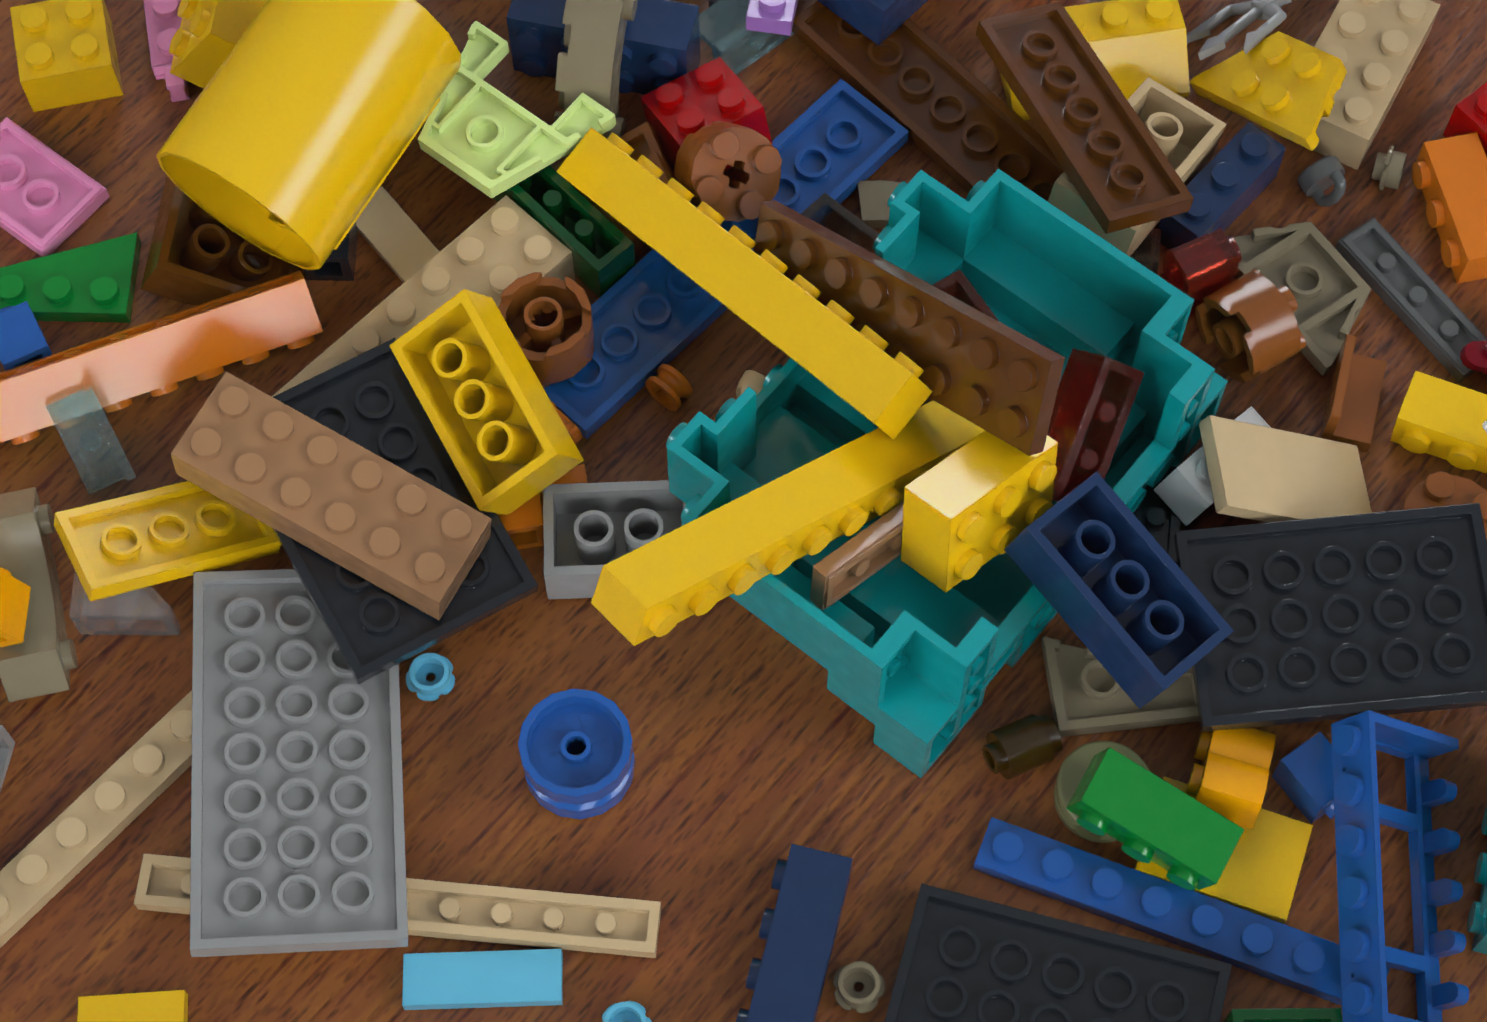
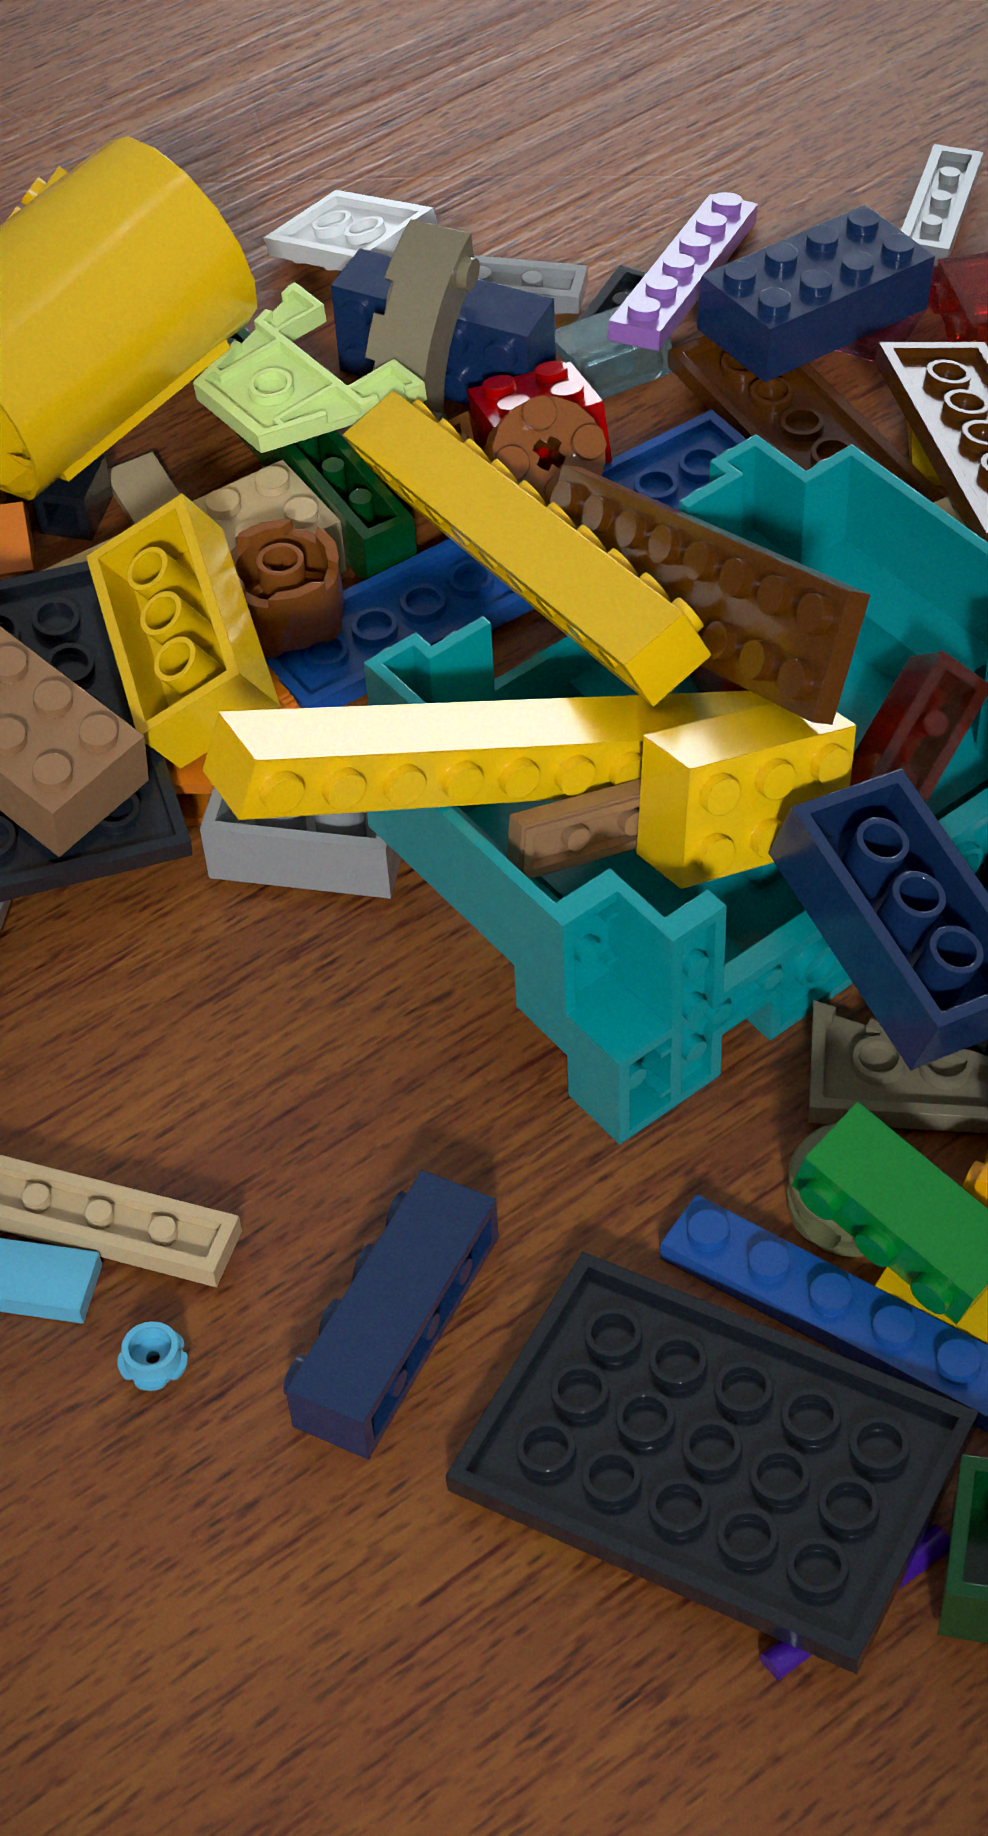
camera: 15 degrees right, 15 degrees down
(430, 664) = (39, 933): medium azure plate -> none
(571, 725) = (184, 1033): blue wheel -> none
(861, 973) = (463, 1347): dark tan plate -> none
(1022, 745) = (757, 1119): dark brown brick -> none

